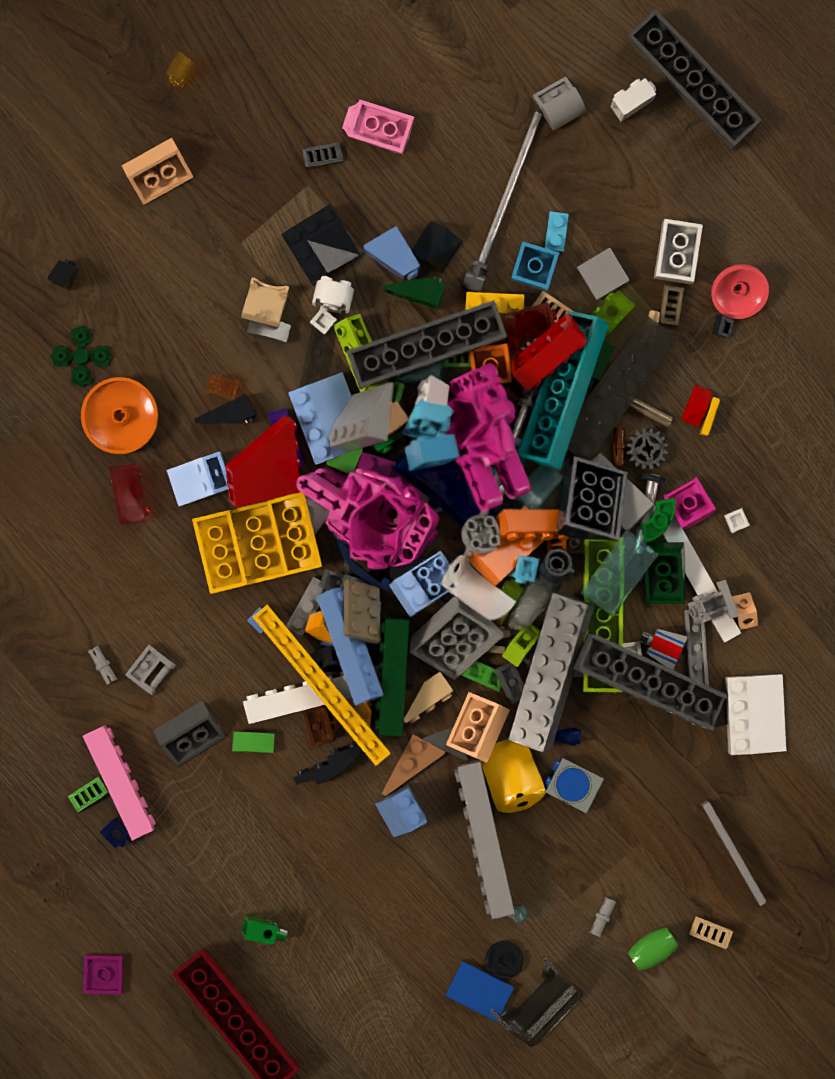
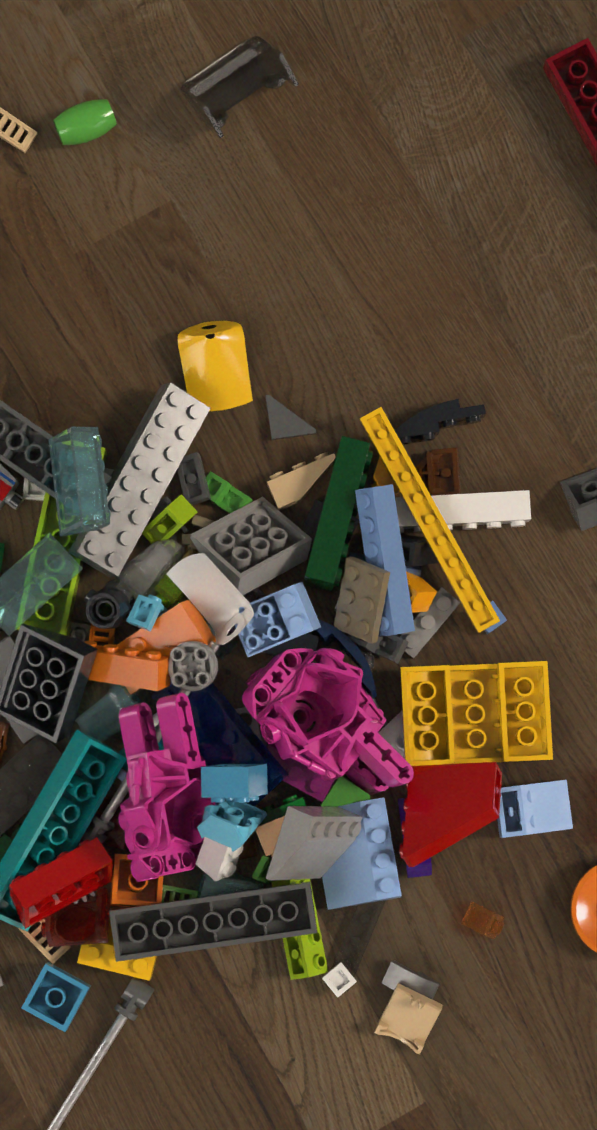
camera: 170 degrees left, 5 degrees down
(234, 412) = (475, 885): black slope -> none
(253, 742) = (527, 467): bright green slope -> none
(254, 929) = (559, 236): green torso -> none
(320, 244) = (323, 1079): black slope -> none
(333, 295) = (320, 1009): white brick -> none
(394, 254) = (232, 1048): medium blue slope -> none
(401, 812) = (359, 346): medium blue slope -> none
(415, 758) = (332, 408): medium nougat wing -> none
(421, 291) = (207, 993): dark green slope -> none
(436, 246) = (176, 1048): black slope -> none
(477, 727) = (245, 431): light nougat slope -> none
(479, 990) = (307, 115): blue tile -> none
(485, 838) = (263, 289): light grey brick -> none
(504, 959) = (269, 146): black tile -> none
(520, 913) = (241, 196): clear light blue plate -> none
(556, 231) = (19, 1036): medium azure plate -> none
(568, 736) = (134, 399): clear blue cone -> none
(573, 784) = (142, 338): panel -> none
(596, 658) = (79, 480): none -> clear light blue slope
(602, 917) = (138, 172): light grey pin -> none

